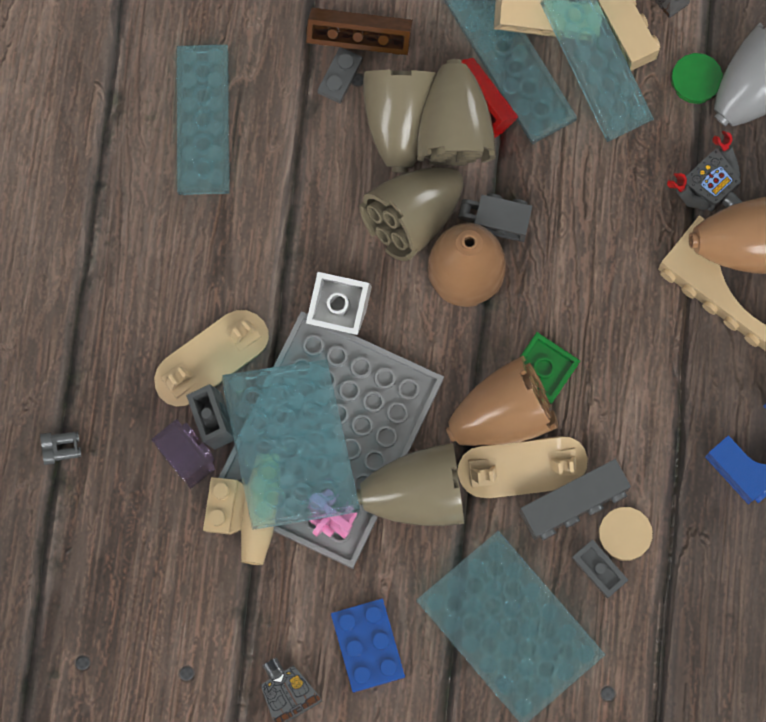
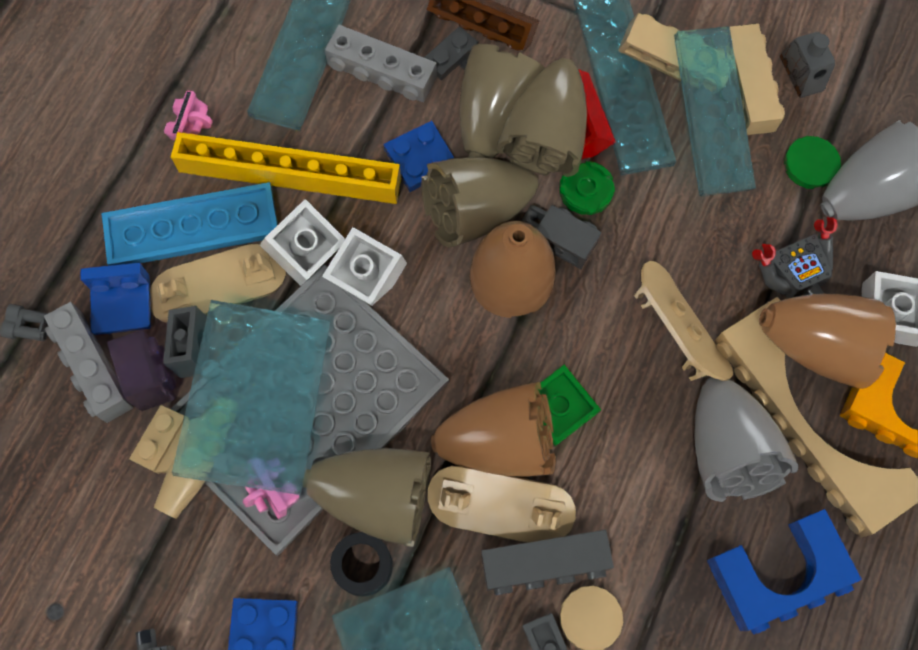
camera: 15 degrees right, 5 degrees down
(130, 461) = (88, 363): none -> light grey brick
(131, 217) = (190, 116): none -> bright pink hips
(133, 399) = (118, 297): none -> blue bracket
(168, 313) = (189, 225): none -> dark azure plate
(236, 234) = (287, 167): none -> yellow brick
(277, 298) = (302, 242): none -> white brick
(281, 107) = (381, 63): none -> light grey brick
(346, 182) = (415, 151): none -> blue plate
(420, 571) = (372, 586): none -> black piece
(509, 168) = (588, 189): none -> green tile
(625, 263) = (682, 323): none -> tan piece
(701, 352) = (738, 443): none -> light grey cylinder

